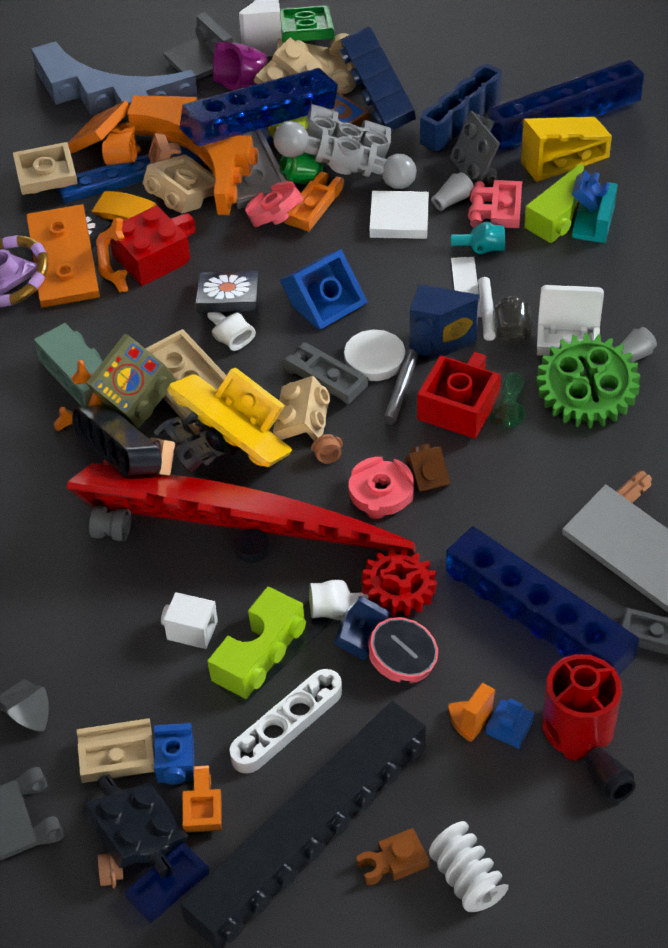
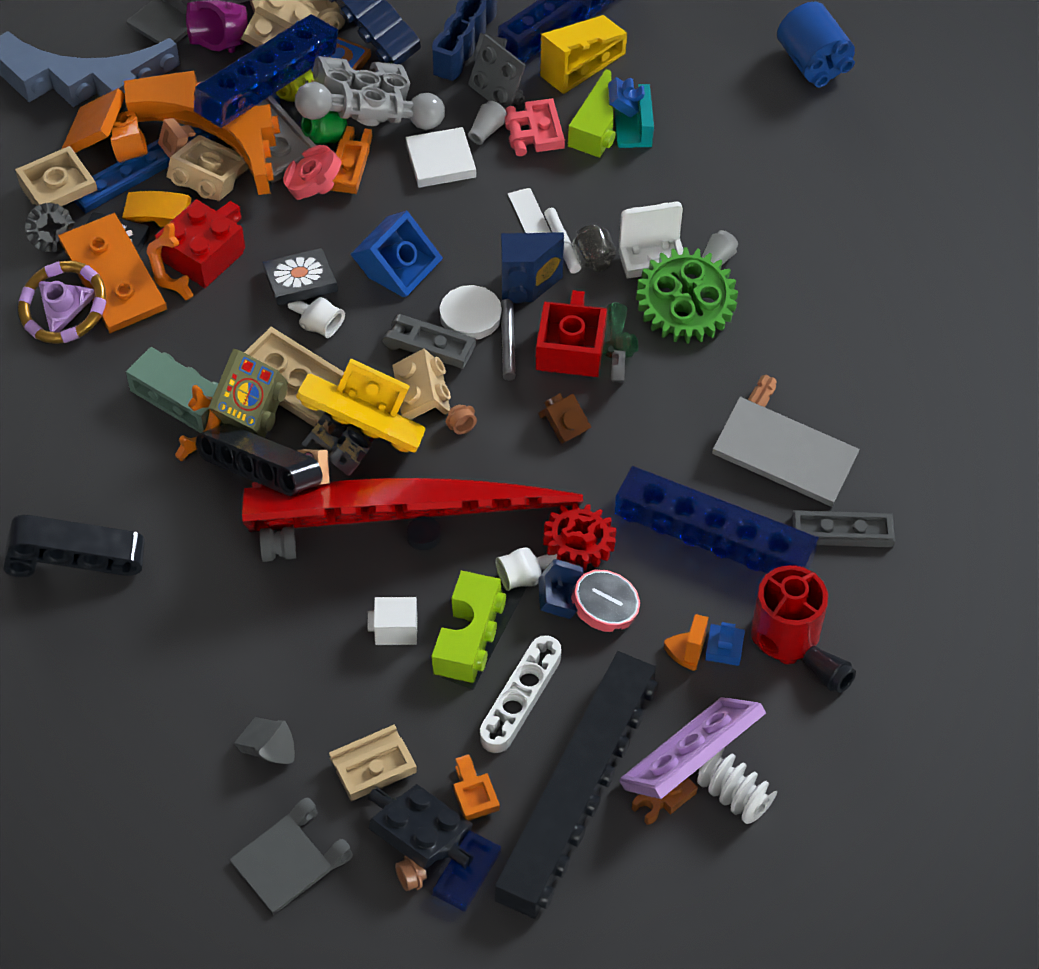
camera: 20 degrees left, 5 degrees up
(13, 196) = (38, 218): none -> dark grey gear
(174, 753) = (430, 751): blue brick -> none
(381, 501) = (526, 461): coral plate -> none
(434, 816) = (691, 747): none -> lavender tile
(482, 238) = (534, 167): teal piece -> none
(495, 435) = (618, 366): none -> flat silver tile

